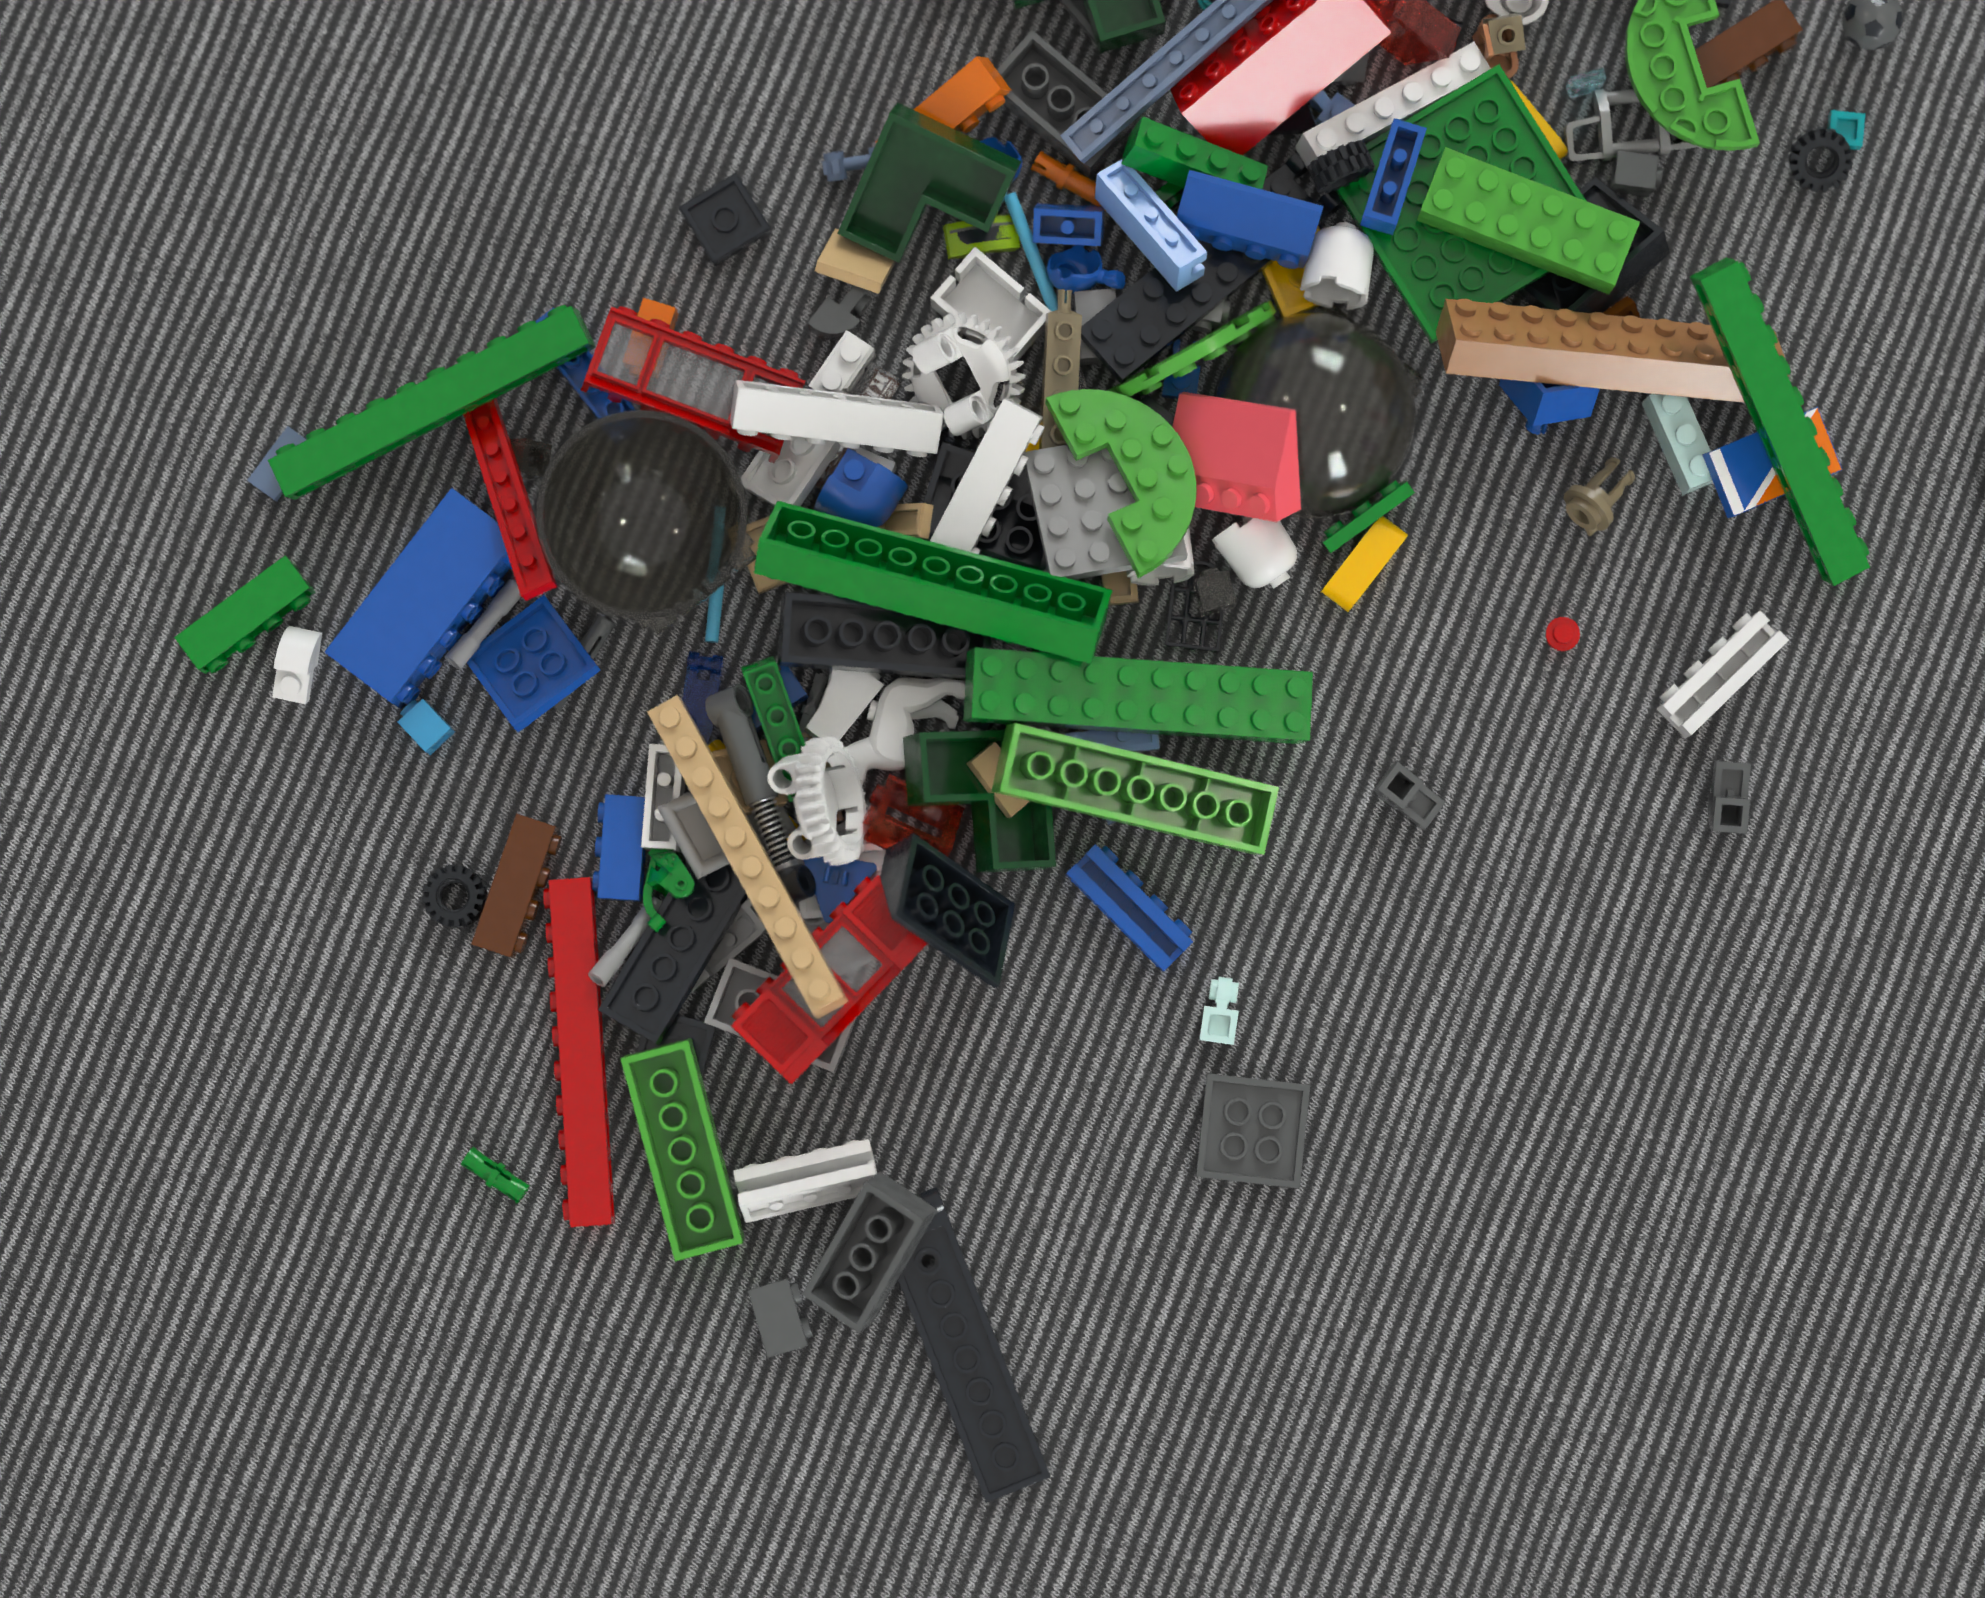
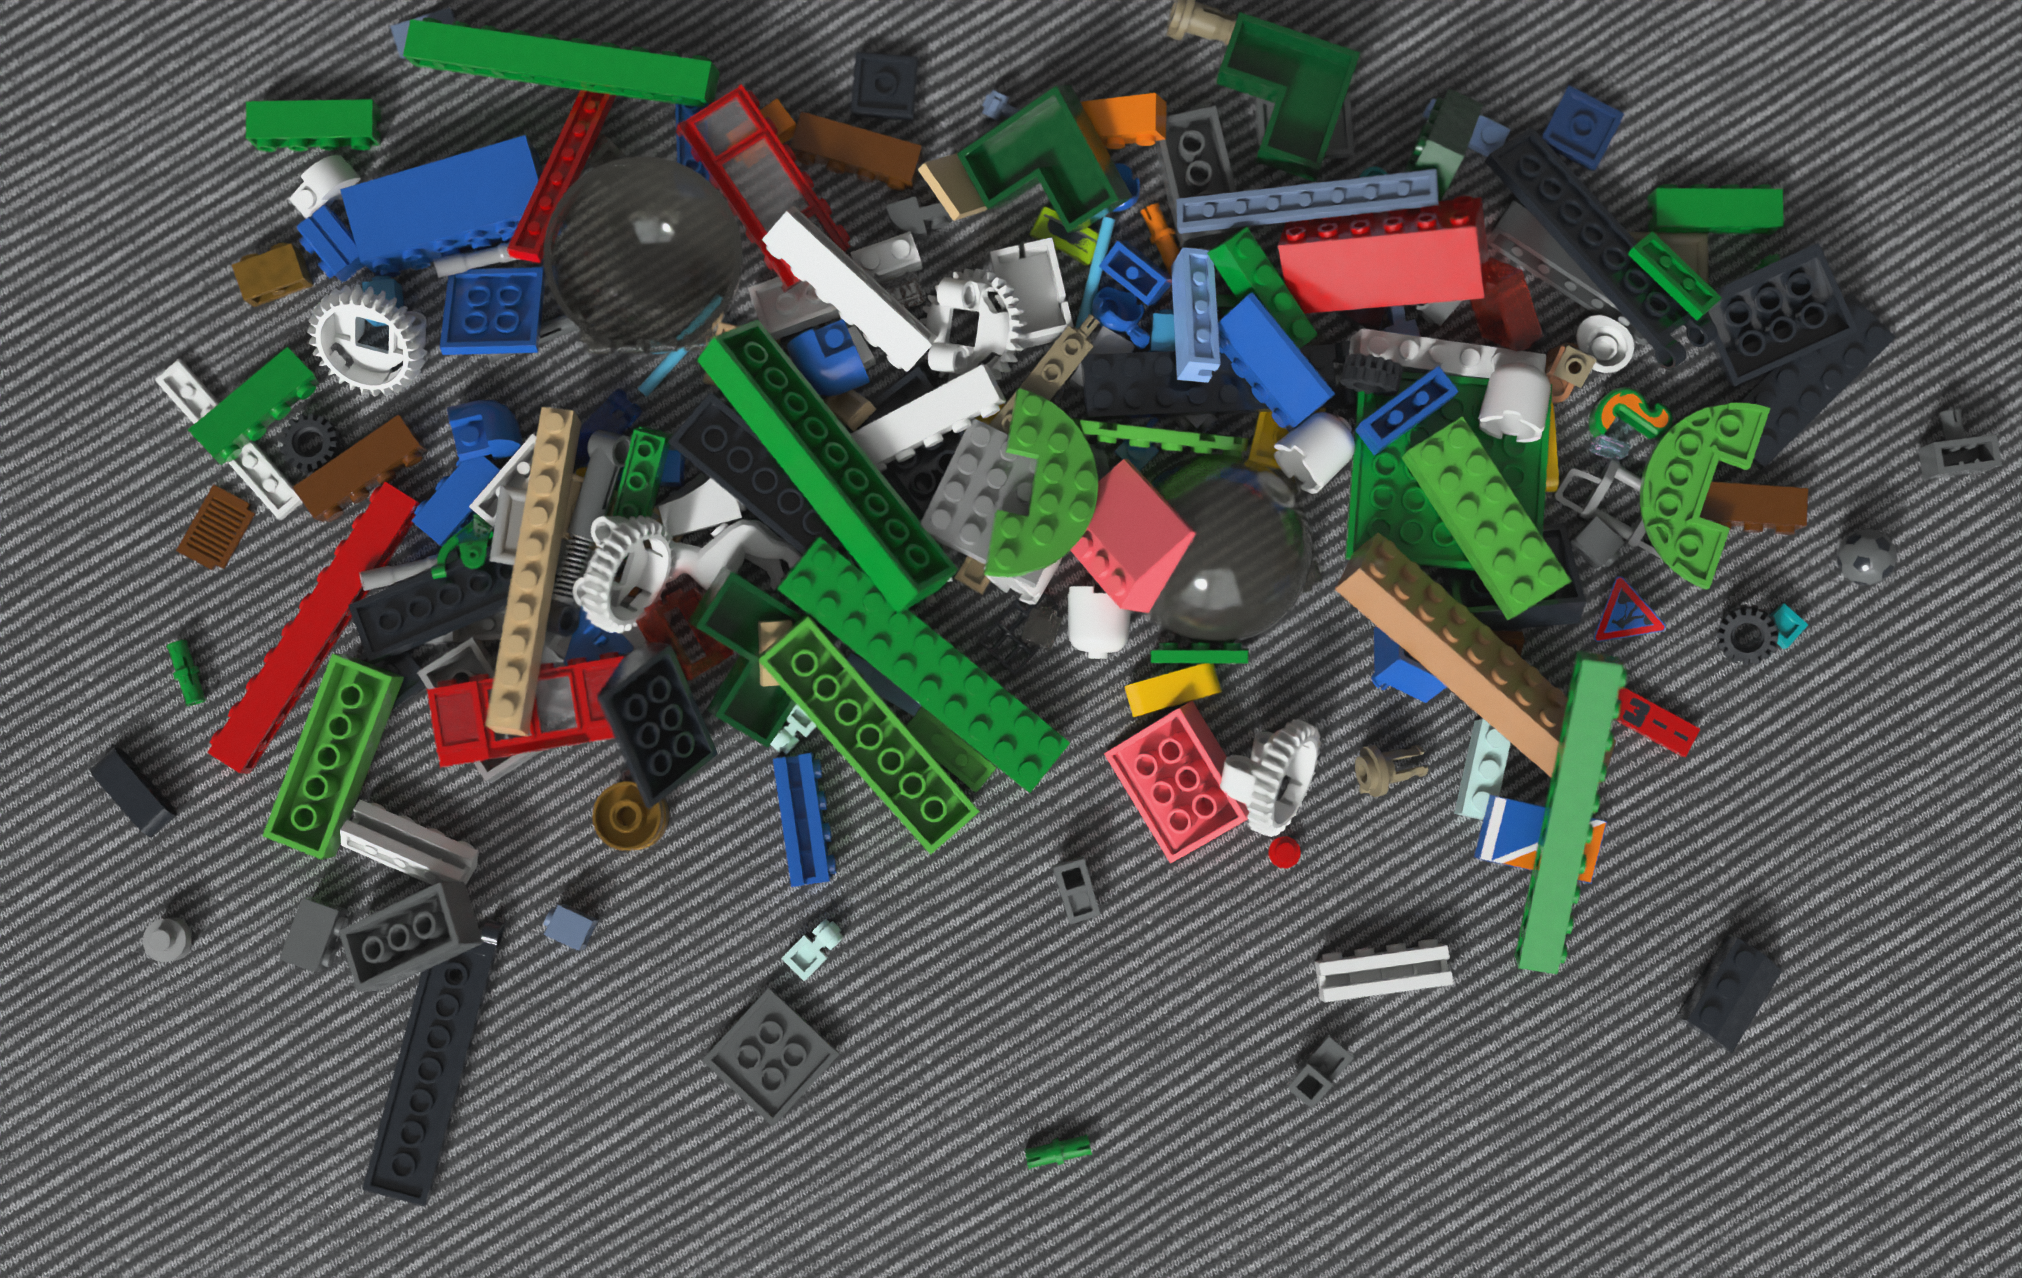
camera: 35 degrees right, 0 degrees up
(308, 773) = (272, 274): none -> pearl gold brick
(342, 707) = (332, 242): none -> blue brick
(378, 945) = (252, 463): none -> white tile
(383, 898) = (254, 406): none -> green brick
(425, 1032) = (216, 529): none -> reddish brown window
(455, 790) = (342, 320): none -> white piece
(527, 1311) = (133, 792): none -> black beam
(600, 772) = (484, 429): none -> blue brick
(654, 1415) = (167, 939): none -> light grey piece
(745, 294) = (856, 151): none -> reddish brown brick
(979, 1013) = (625, 820): none -> pearl gold wheel
(995, 1147) = (570, 926): none -> sand blue brick
(1064, 824) = (785, 738): none -> light aqua plate
(1129, 260) = (1162, 331): none -> dark azure brick
(1214, 754) = (950, 750): none -> bright green plate
(1430, 638) = (1175, 781): none -> coral slope
(1481, 101) = (1516, 402): none -> white cylinder
(1497, 574) = (1257, 779): none -> white piece
(1557, 1030) = (1057, 1151): none -> green pin
(1581, 35) = (1632, 409): none -> green animal
(1705, 216) = (1626, 614): none -> piece
(1798, 292) = (1655, 723): none -> red tile

